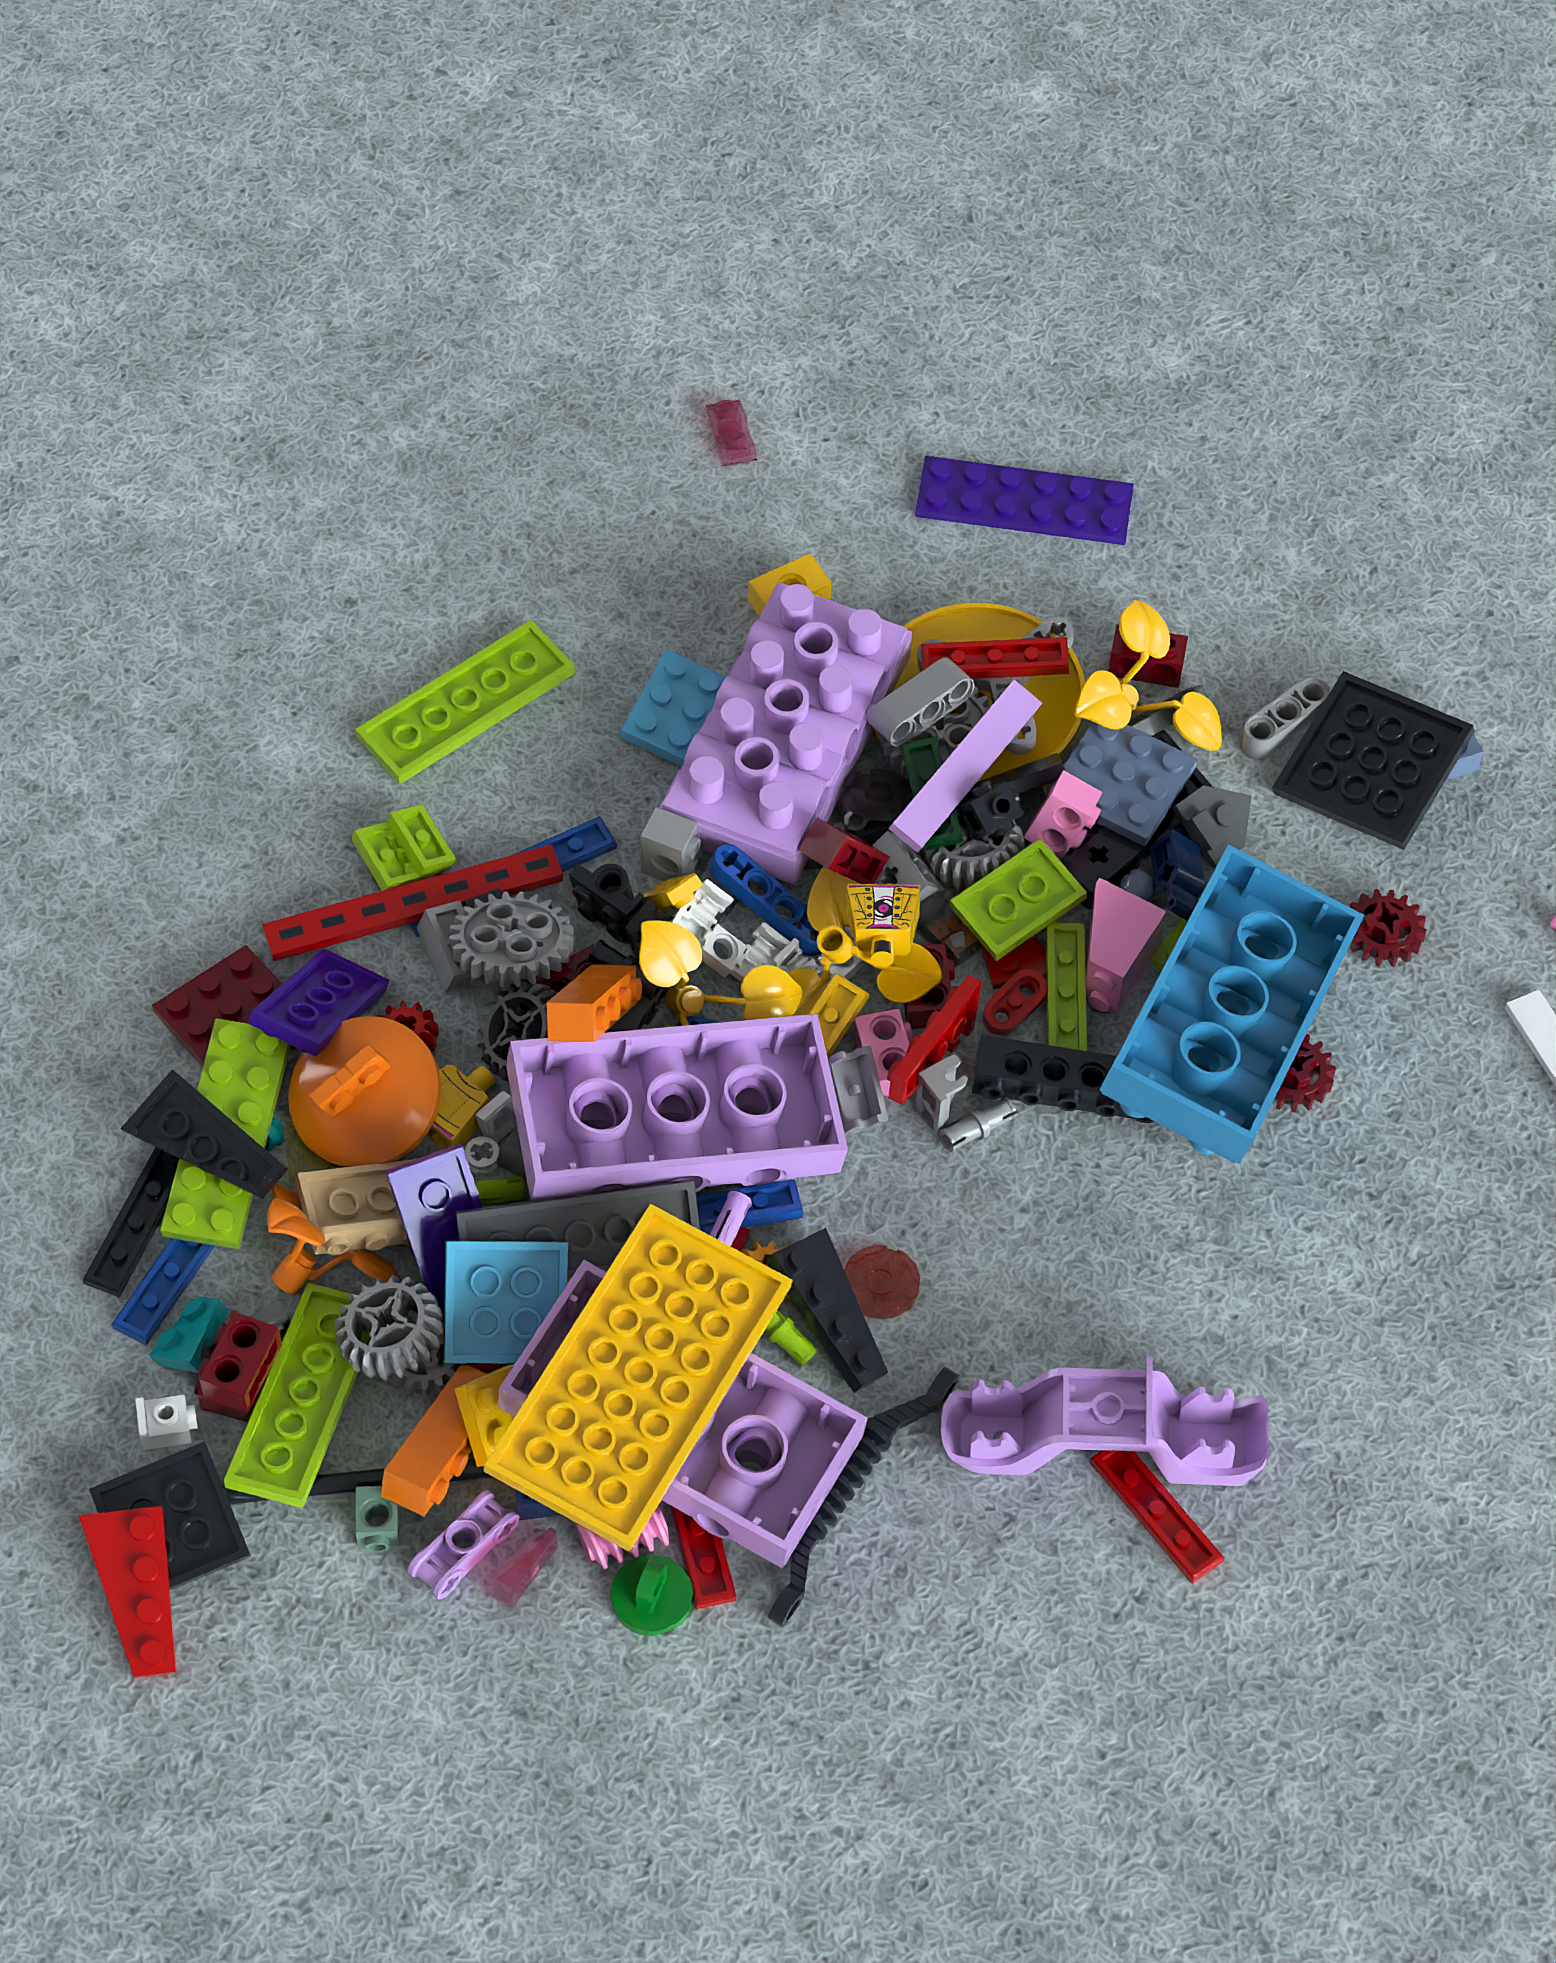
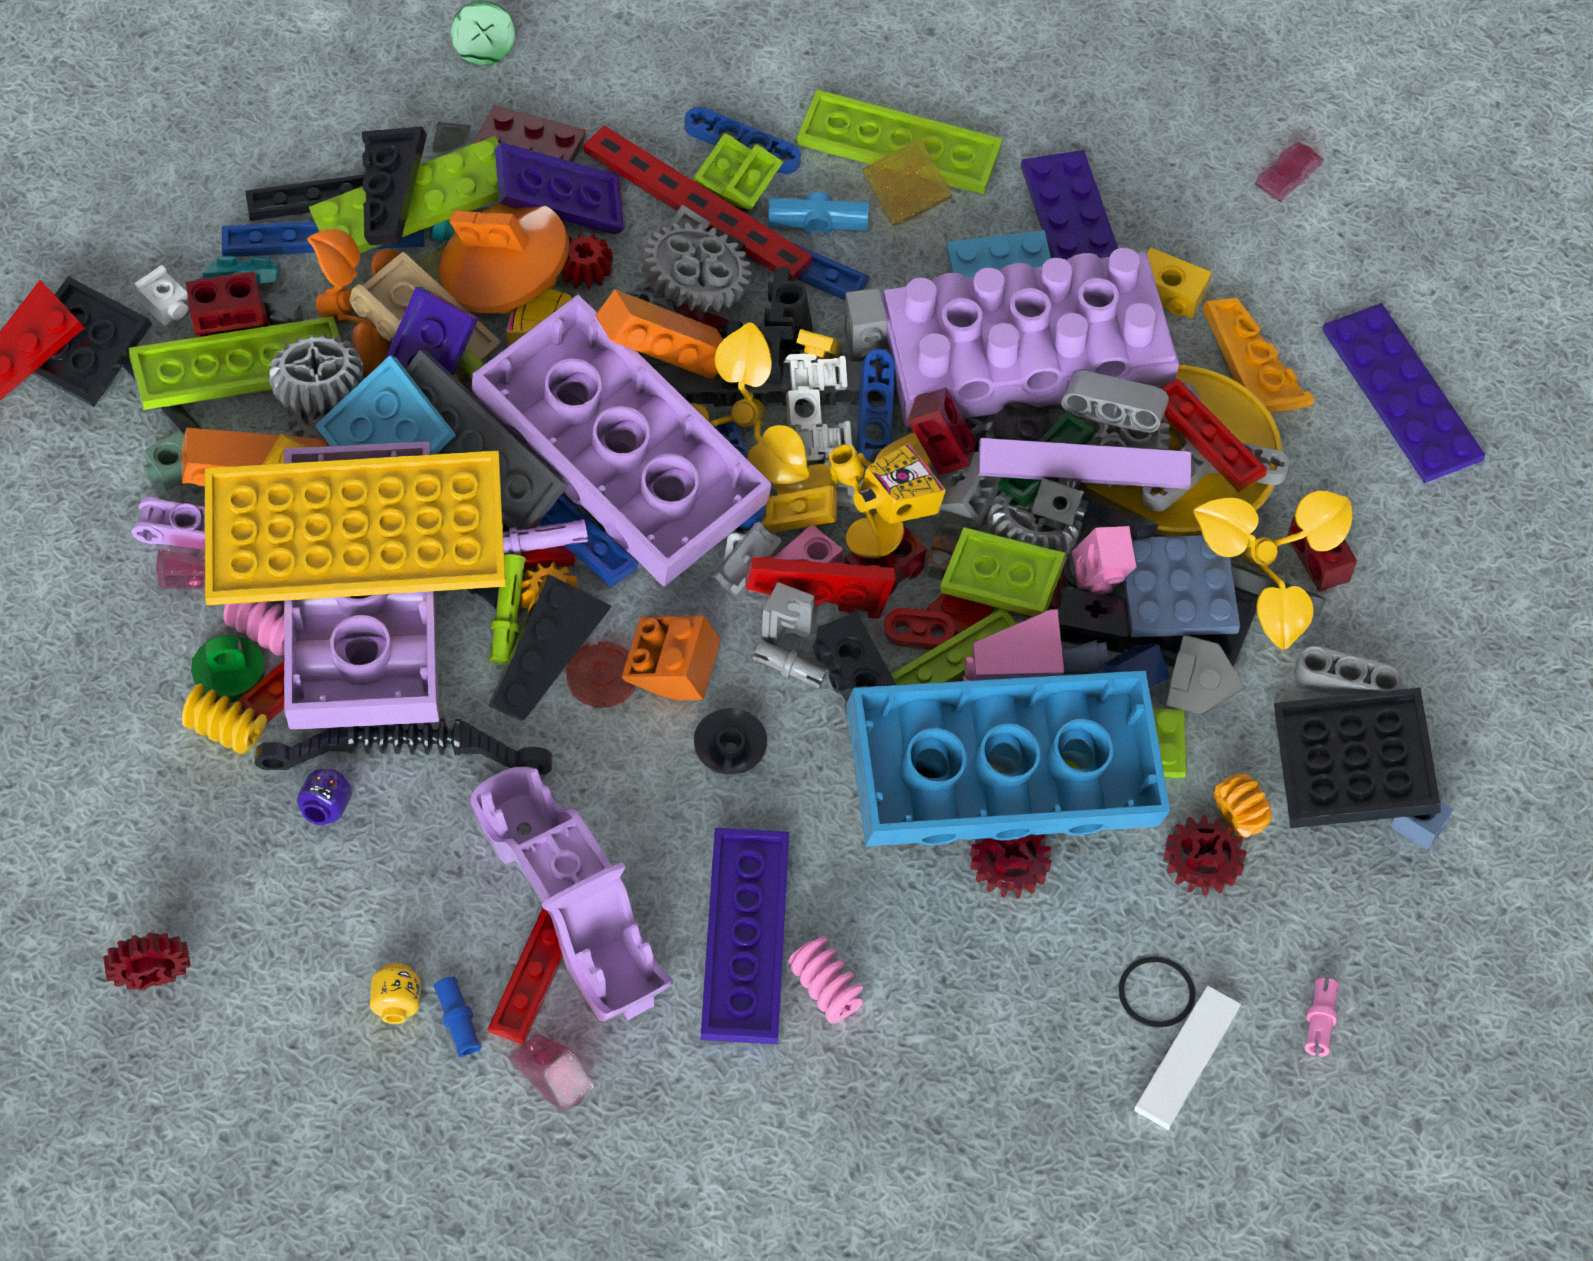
camera: 55 degrees right, 0 degrees up
(63, 961) = (482, 32): none -> tile
(154, 1063) = (449, 135): none -> clear smoke tile
(353, 819) = (745, 135): none -> blue beam
(499, 813) = (818, 213): none -> dark azure piece
(525, 722) = (907, 183): none -> clear yellow plate
(656, 621) = (1068, 205): none -> dark purple plate
(715, 1625) = (222, 723): none -> yellow piece
(860, 1584) = (324, 796): none -> dark purple head
(909, 1212) = (672, 656): none -> orange slope
(910, 582) = (1253, 359): none -> light orange wing
(952, 1826) = (146, 961): none -> dark red gear
(1035, 1202) = (734, 727): none -> black dish
(1112, 1635) = (395, 992): none -> yellow head
(1166, 1598) = (457, 1016): none -> blue pin
(1233, 1319) = (745, 936): none -> dark purple plate
(1272, 1549) = (552, 1071): none -> clear pink slope
(1321, 1278) = (825, 980): none -> bright pink piece
(1361, 868) = (1242, 804): none -> light orange gear
(1489, 1015) = (1154, 1023): none -> black piece

